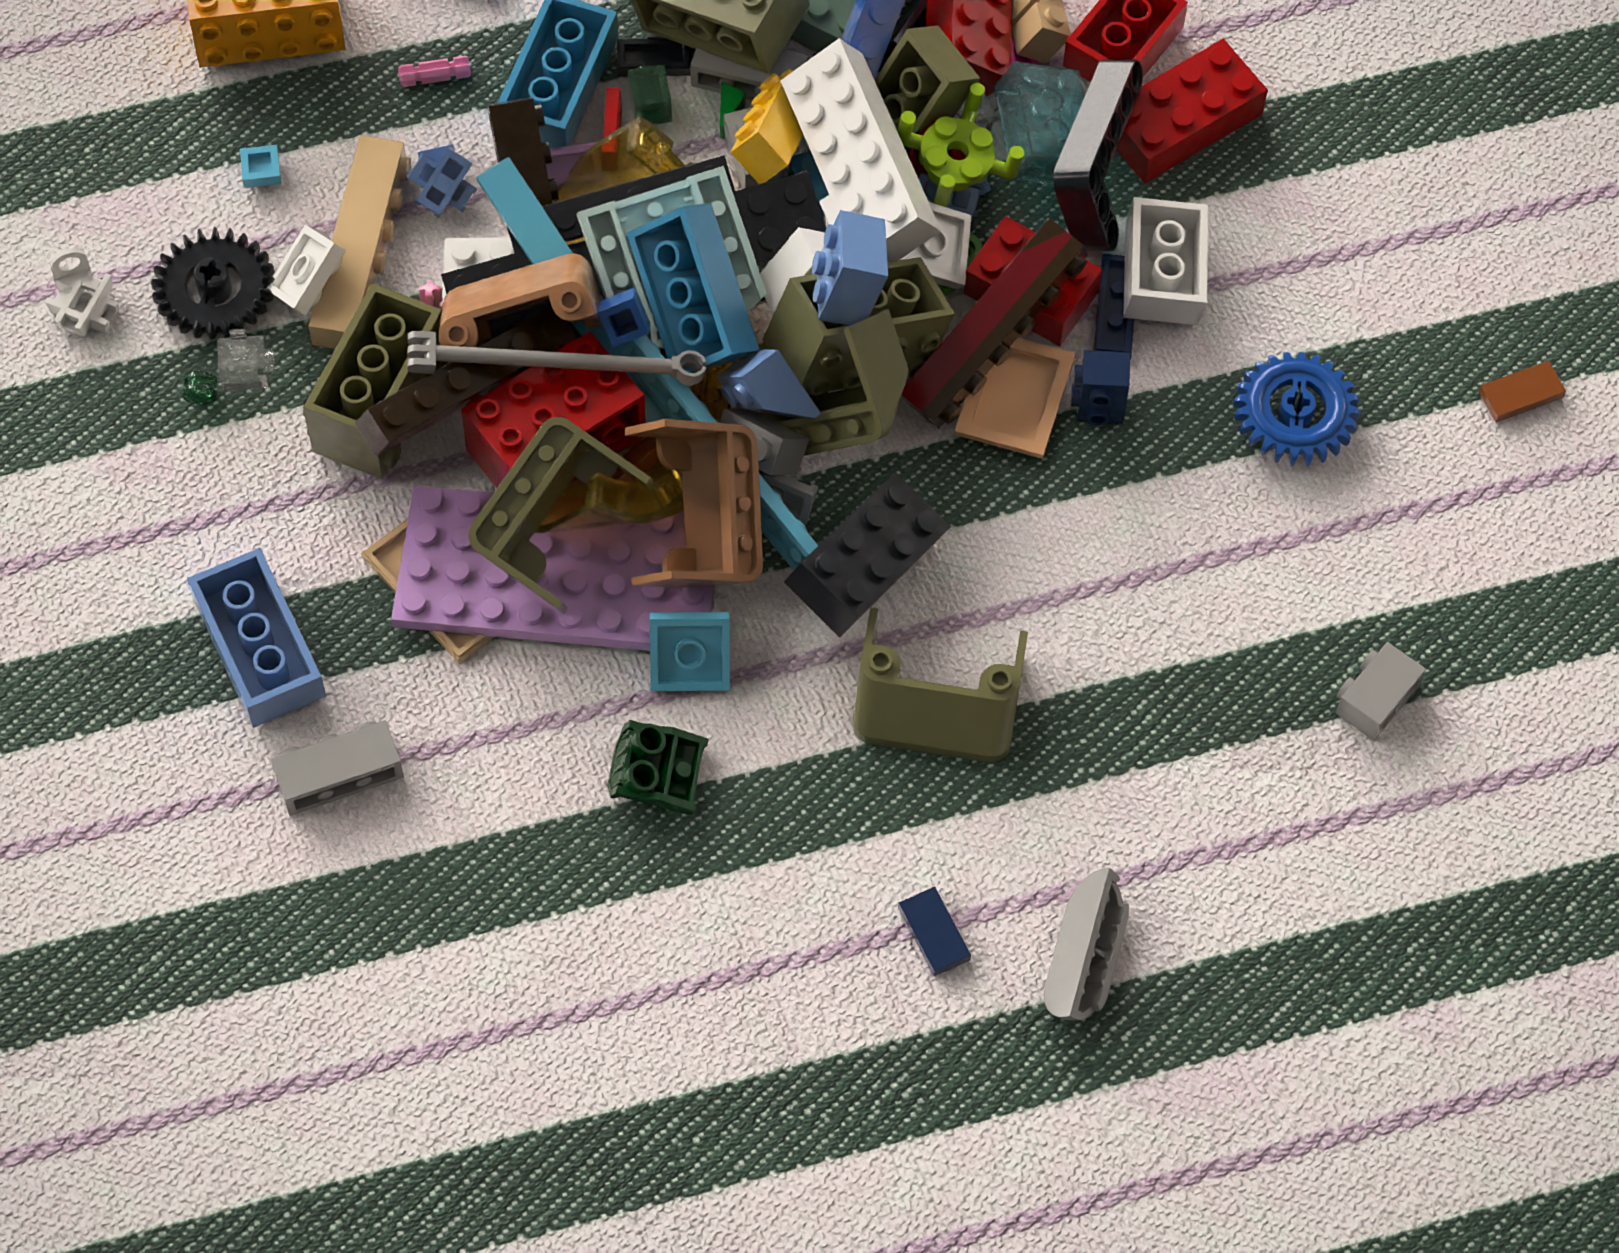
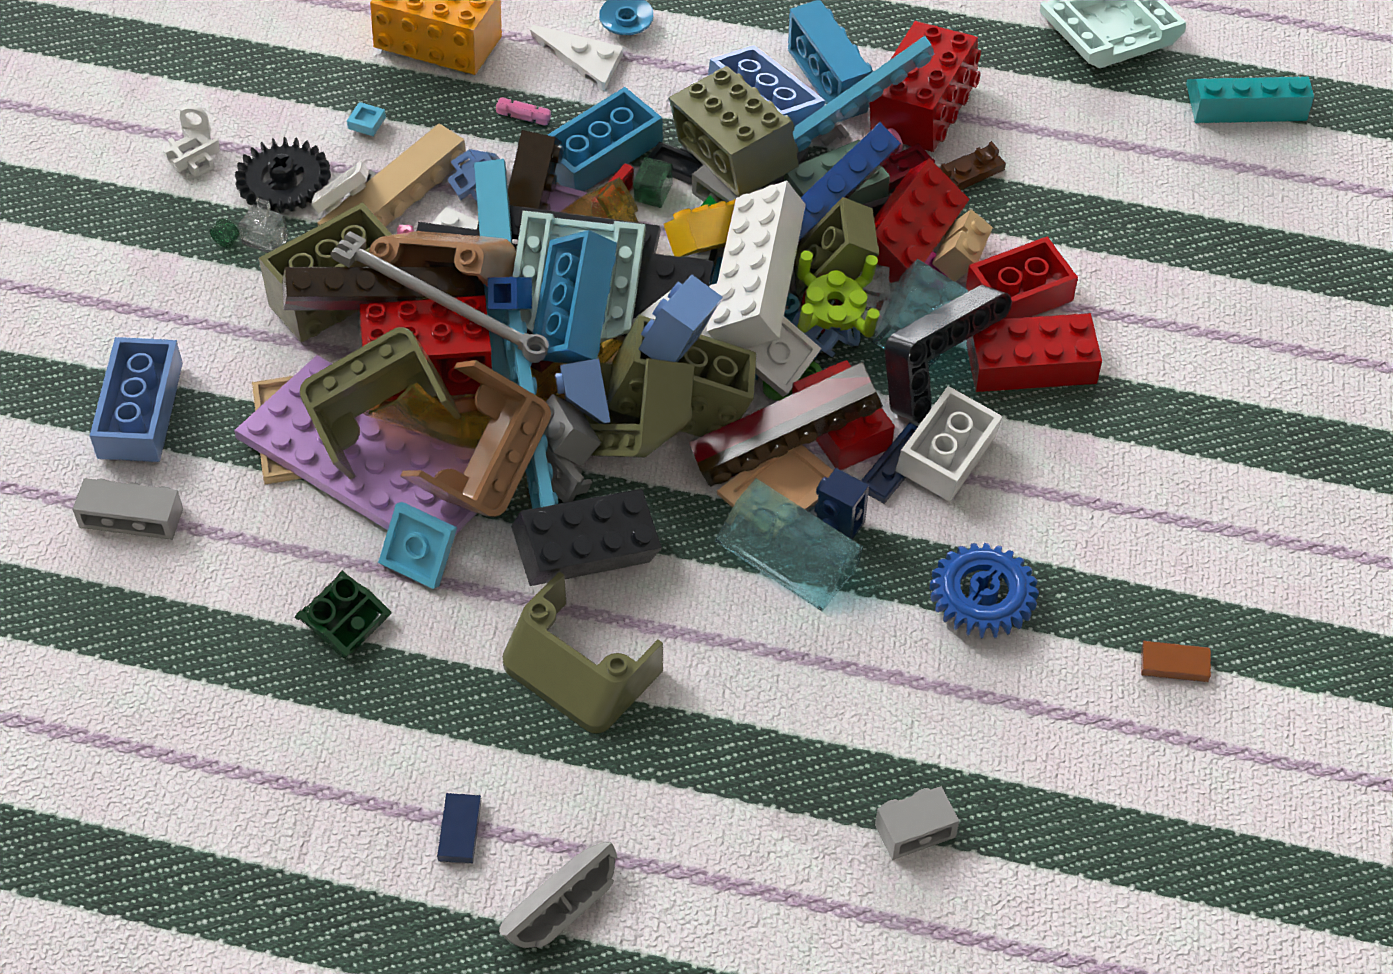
camera: 30 degrees right, 10 degrees down
(1073, 456) = (789, 544): none -> clear light blue slope

